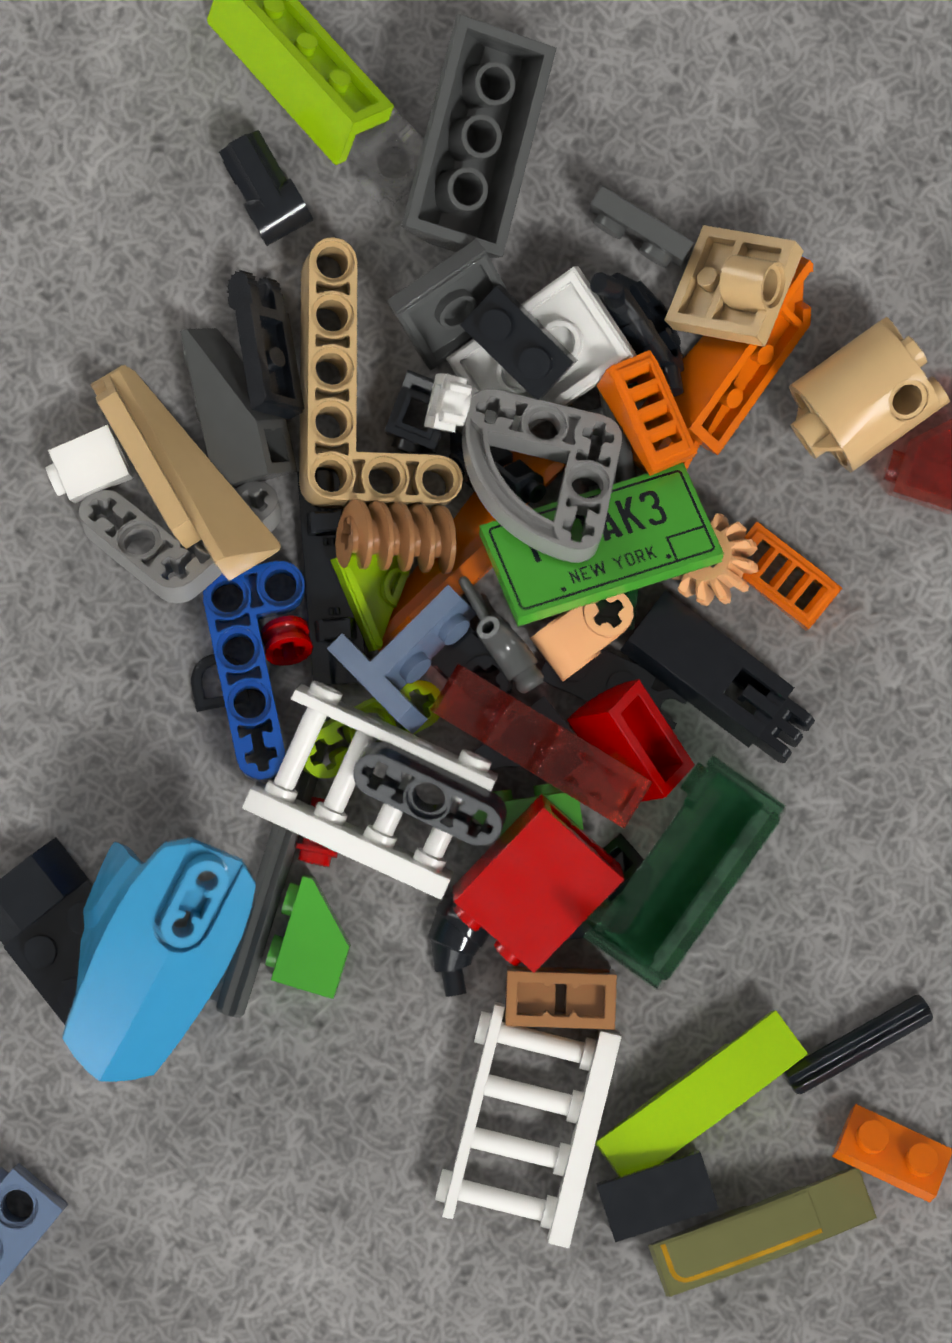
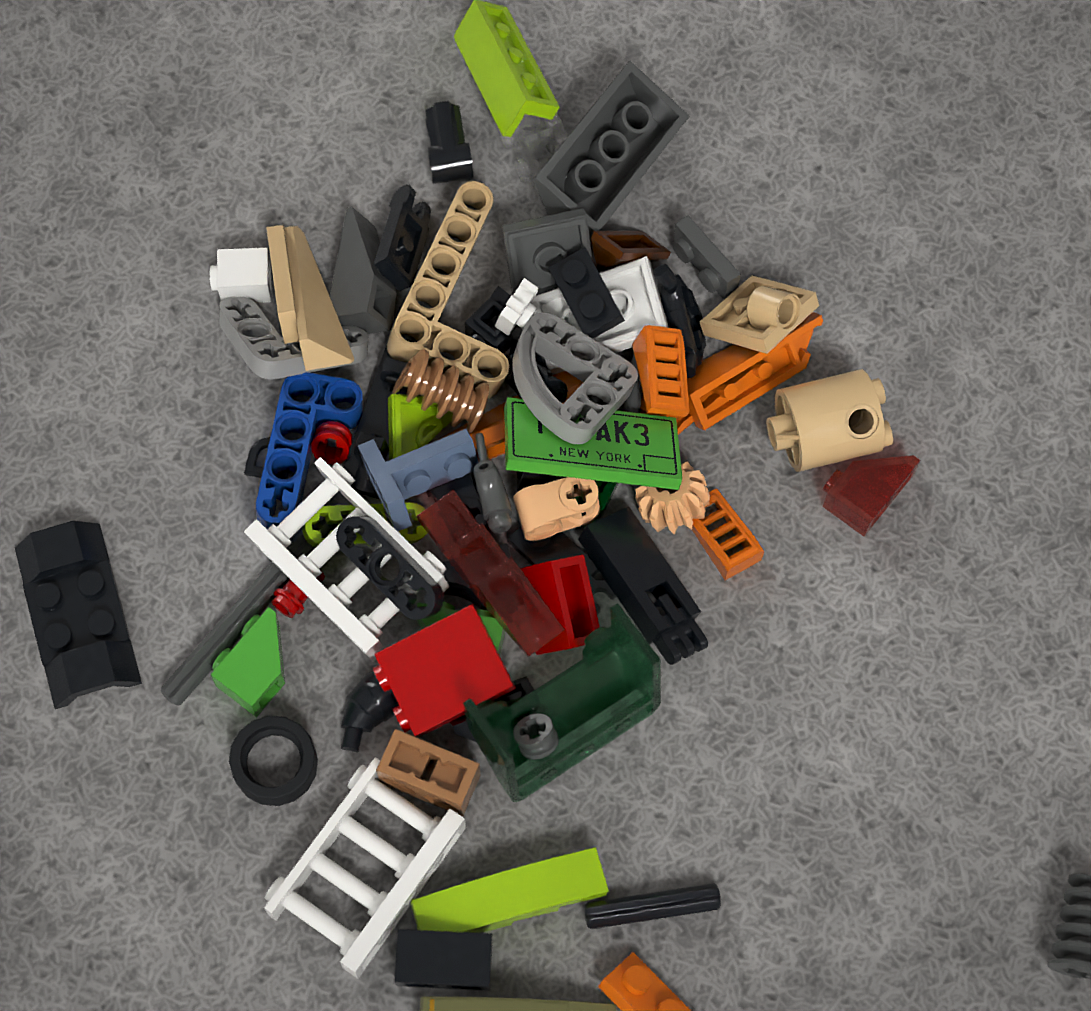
camera: 10 degrees right, 20 degrees down
(137, 971) = (119, 624): dark azure piece -> none
(375, 1083) = (264, 728): none -> black tyre
(544, 252) = (622, 247): none -> reddish brown slope
(649, 910) = (540, 746): none -> dark grey bush

